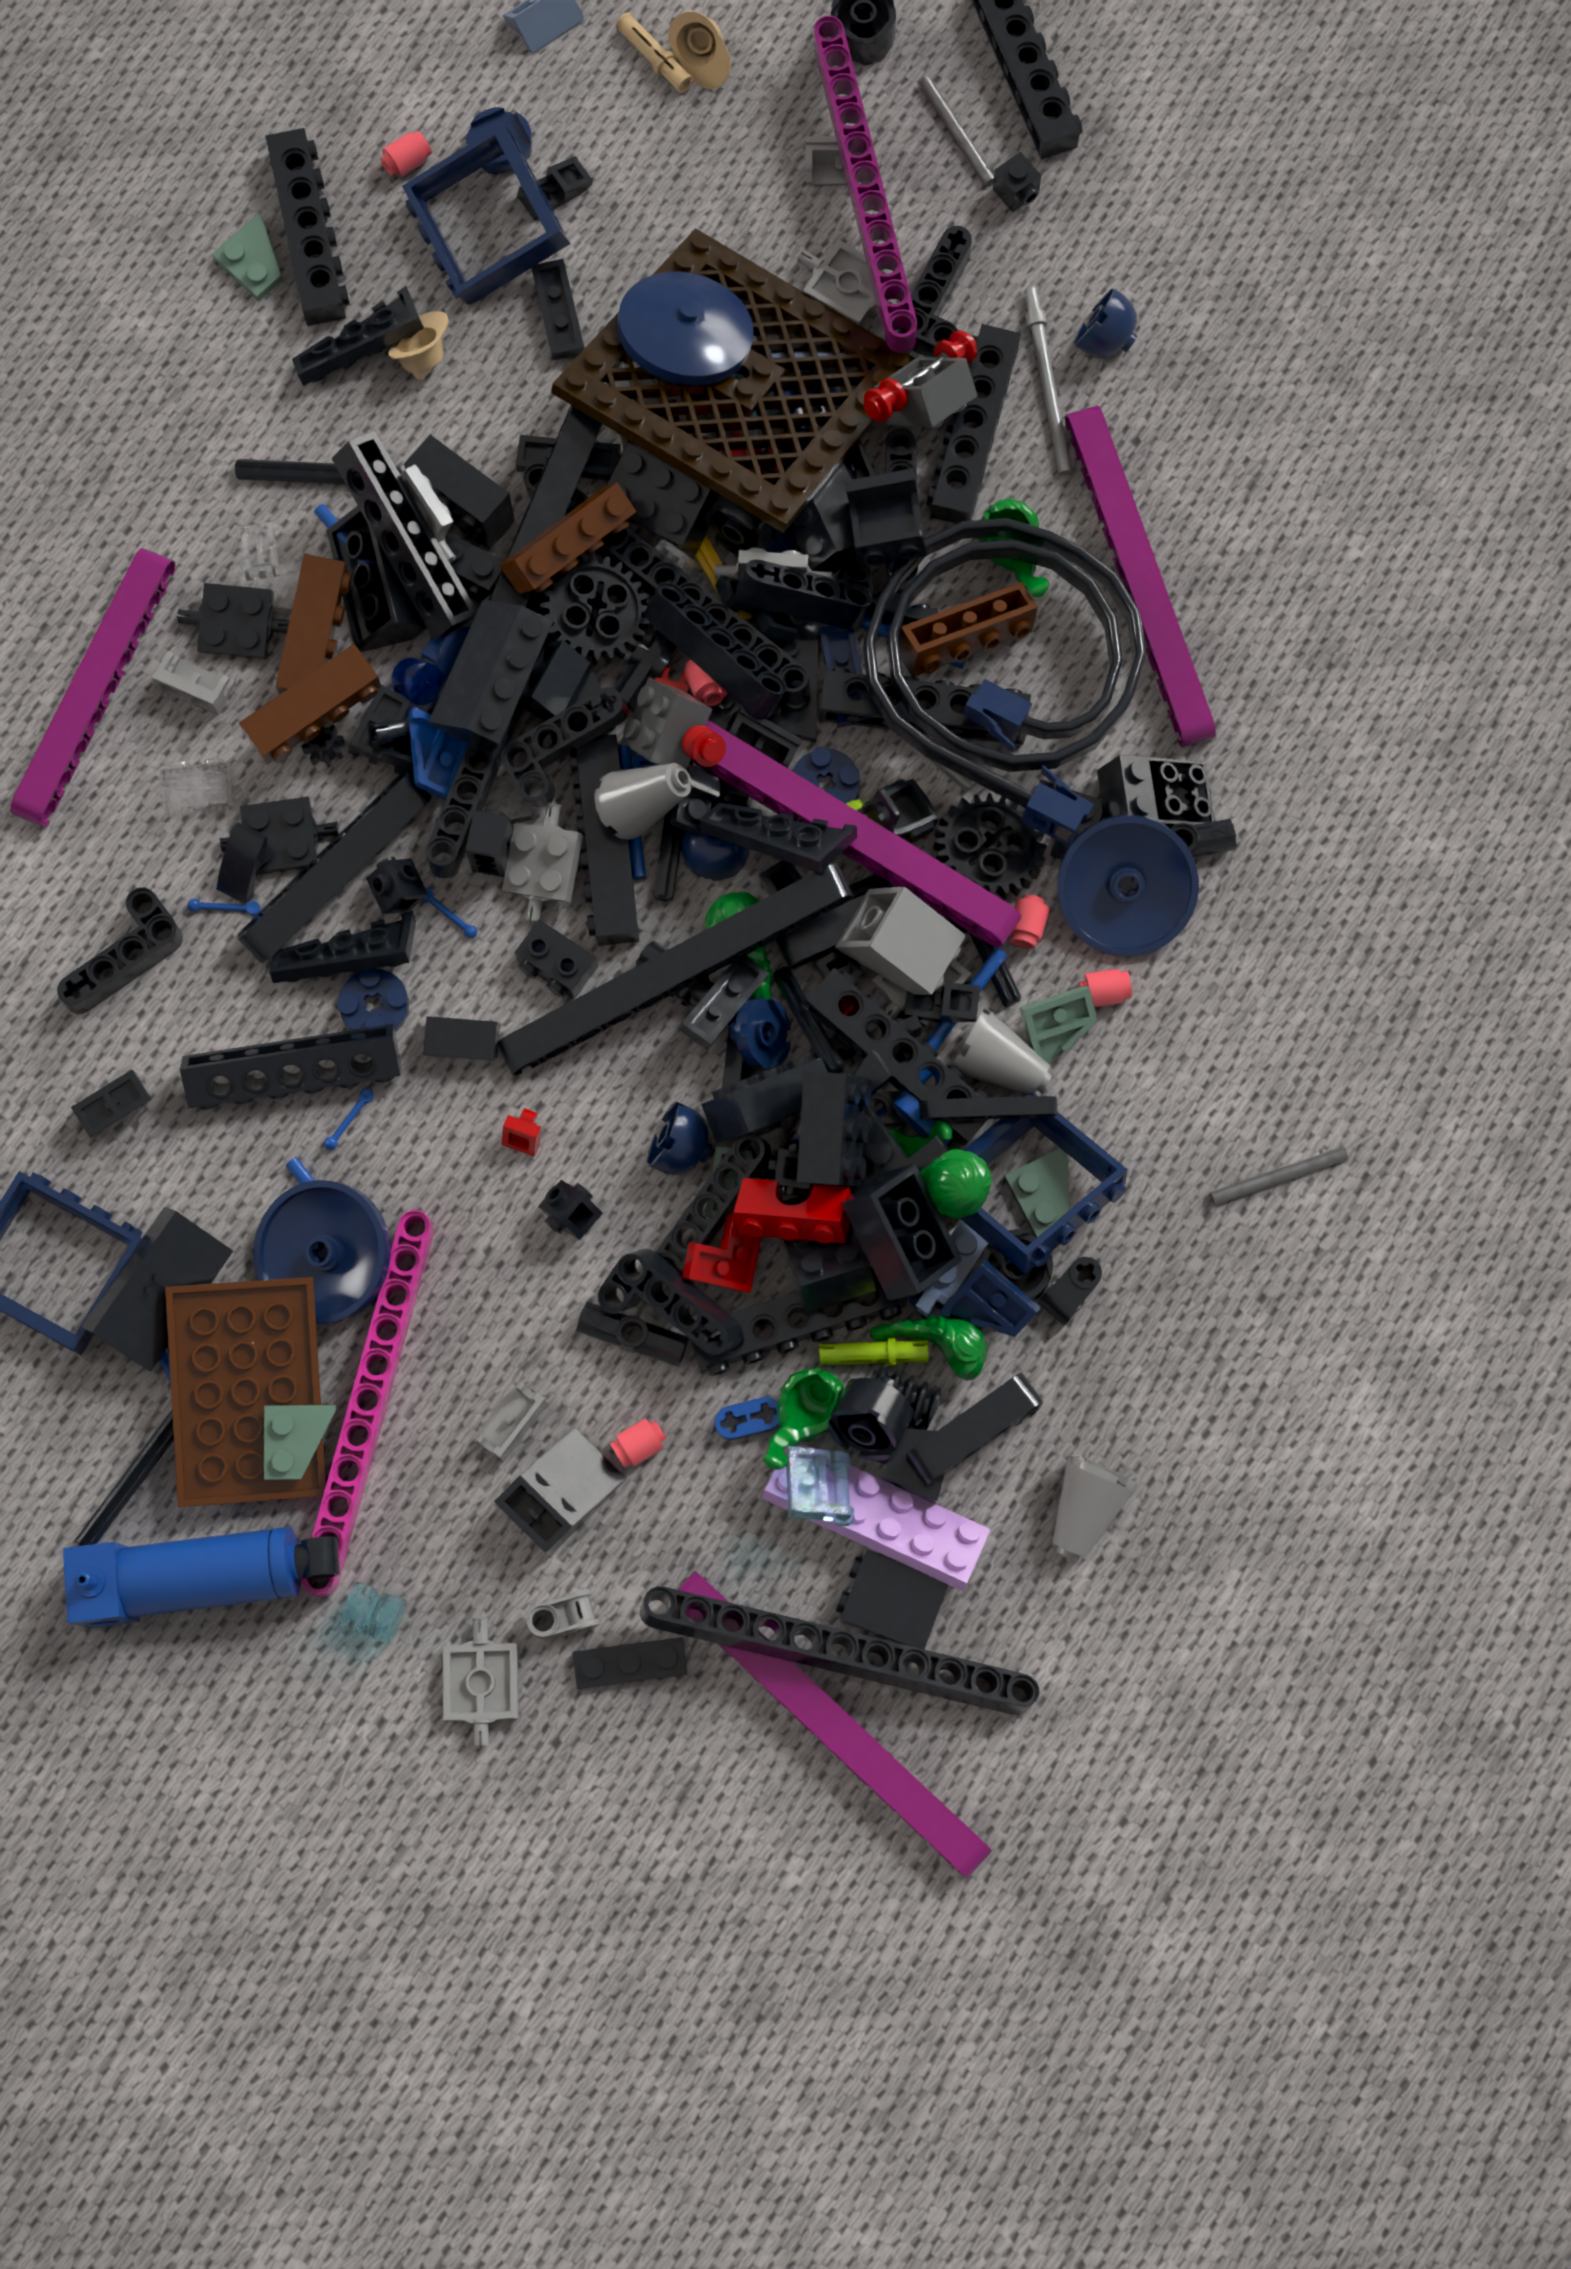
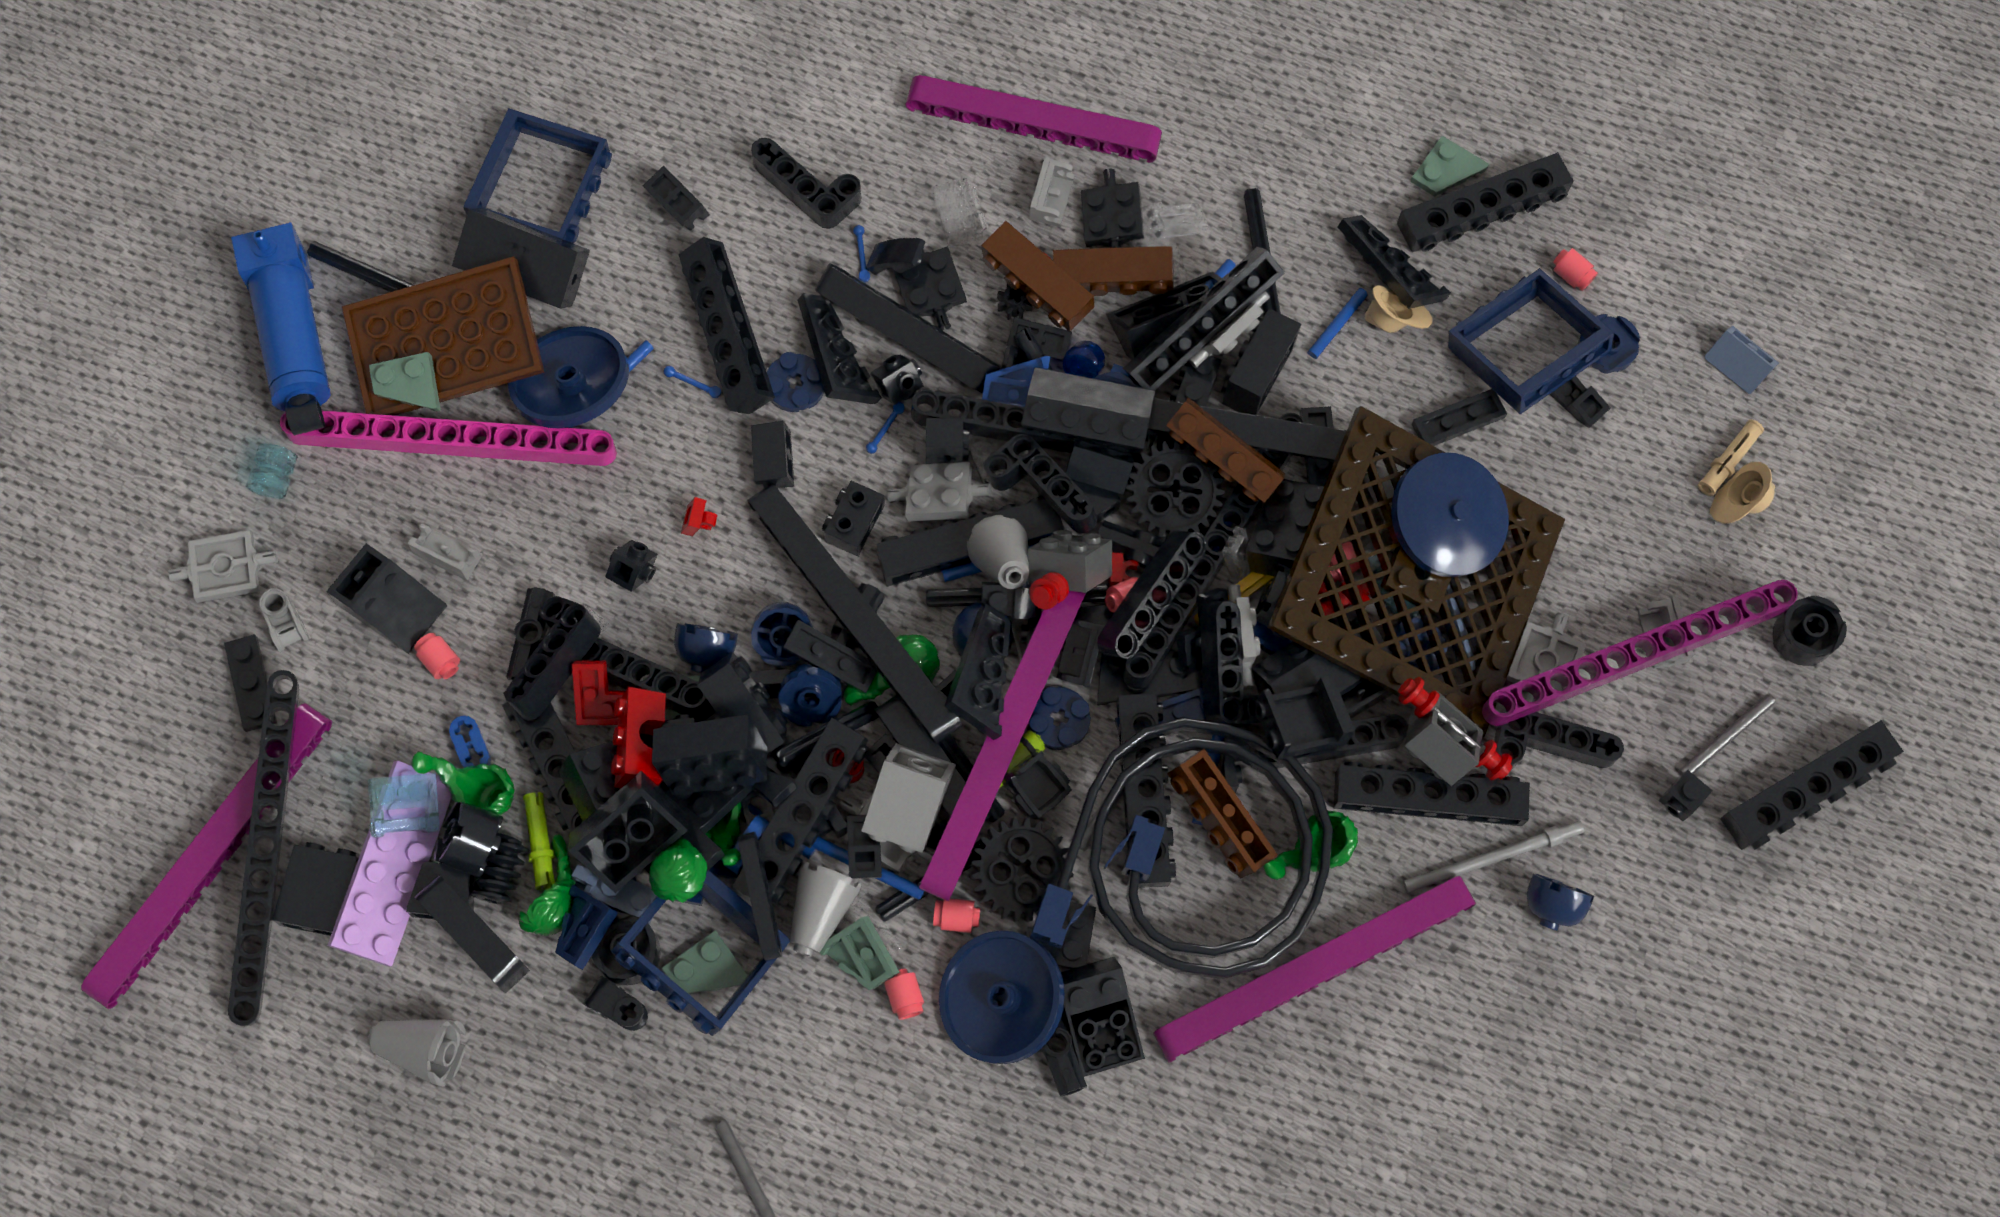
camera: 75 degrees right, 5 degrees down
(417, 409) = (1337, 323): none -> blue bar
(679, 1059) = (771, 630): none -> dark blue cylinder

